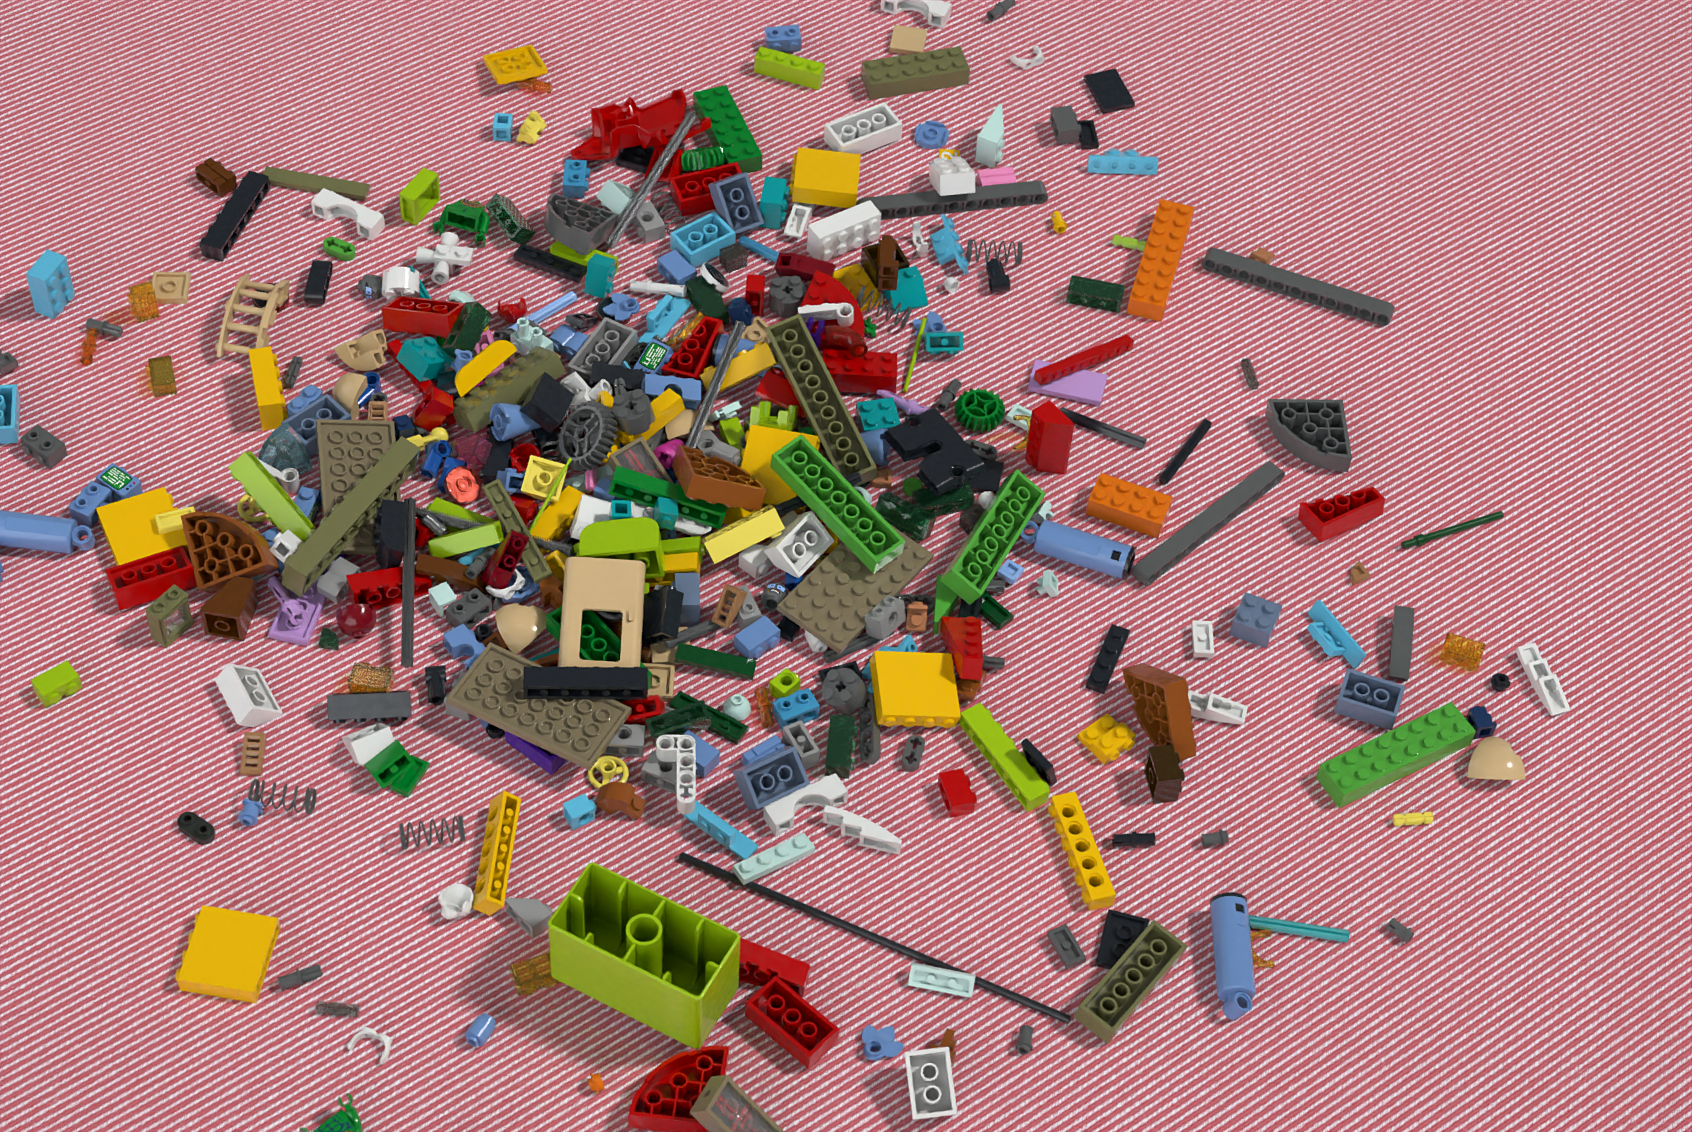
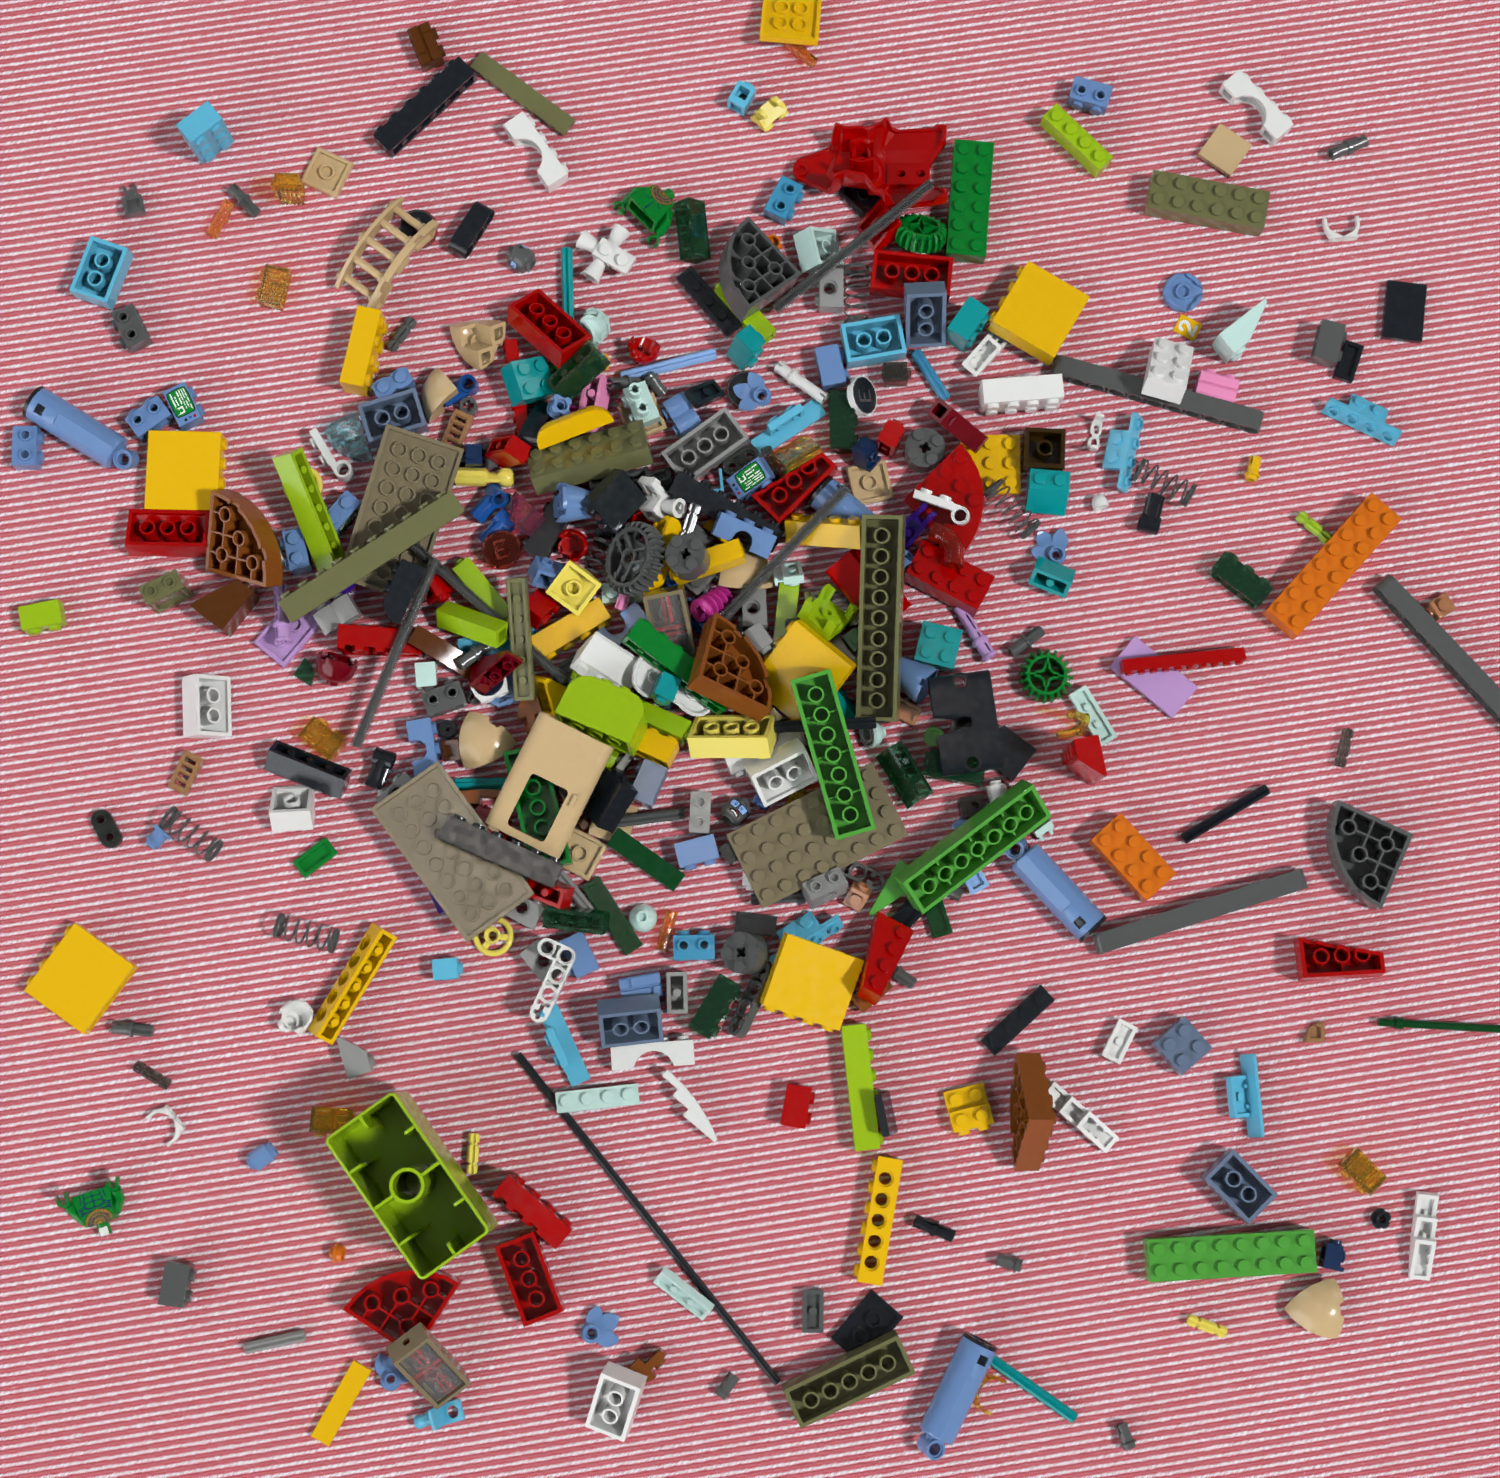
camera: 25 degrees right, 30 degrees up
(171, 520) = (214, 479): light yellow tile -> none
(284, 545) = (296, 566): white brick -> none
(339, 249) = (514, 189): bright green beam -> none
(389, 764) = (297, 845): green brick -> none
(400, 282) = (545, 273): white brick -> none
(419, 196) = (614, 163): lime window -> none
(433, 524) = (449, 593): dark grey pin -> none
(550, 494) = (569, 610): lime piece -> none
(620, 509) = (620, 673): teal brick -> none
(620, 796) = (487, 976): dark orange brick -> none
(723, 603) = (693, 805): medium nougat slope -> none
(778, 684) = (690, 923): lime brick -> none
(863, 130) = (1109, 264): white brick -> none
(869, 327) = (988, 523): green plant -> none
(887, 263) = (1037, 463): reddish brown hips -> none
(909, 752) = (776, 1038): dark grey beam -> none
(914, 356) = (1016, 577): lime axle -> none
(983, 449) = (1016, 727): dark grey beam -> none
(1048, 584) = (1005, 914): light aqua tile -> none
(1105, 429) = (1157, 748): black axle -> none
(1163, 774) = (995, 1180): dark brown brick -> none
(1401, 643) = (1308, 1134): dark grey slope -> none

